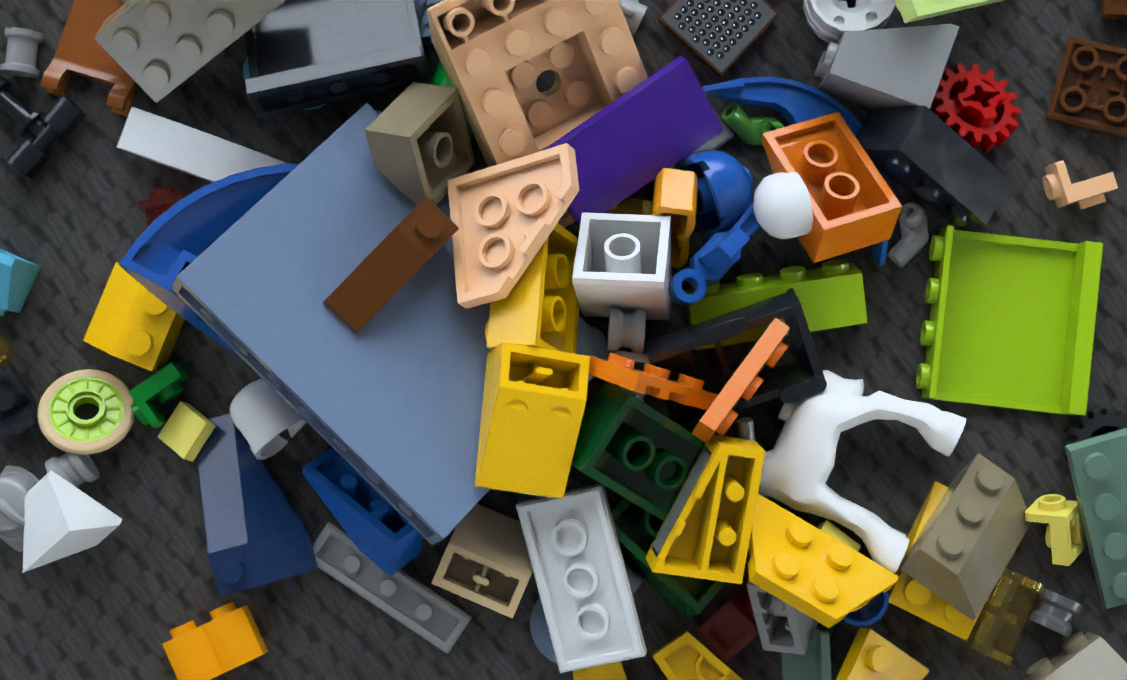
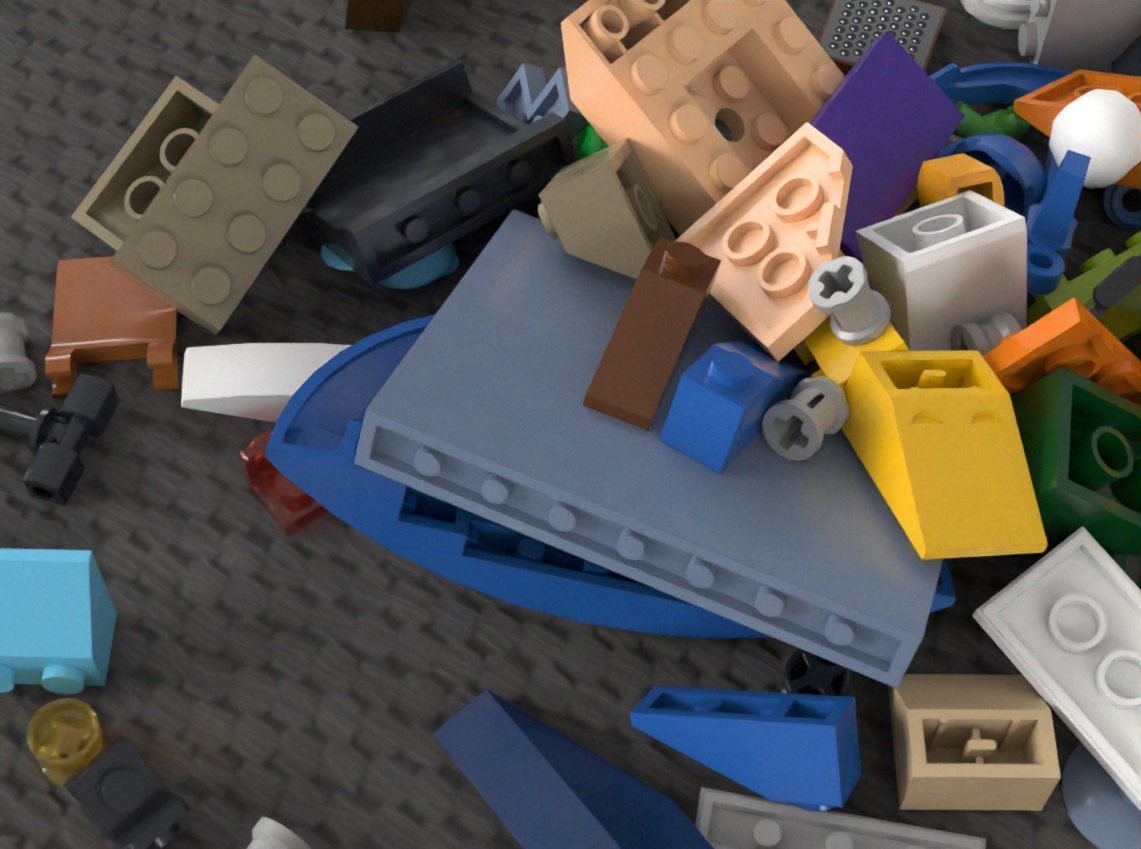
camera: 25 degrees left, 30 degrees down
(91, 435) = (224, 788): wheel -> none
(133, 323) = (293, 611): yellow slope -> none
(162, 386) = (364, 689): green bracket -> none
(186, 431) = (429, 740): light yellow tile -> none
(262, 416) = (536, 656): white helmet -> none
(419, 331) = (725, 400): none -> blue slope
(444, 364) = (789, 415): none -> light grey bush
(514, 303) = (844, 293): none -> light grey bush

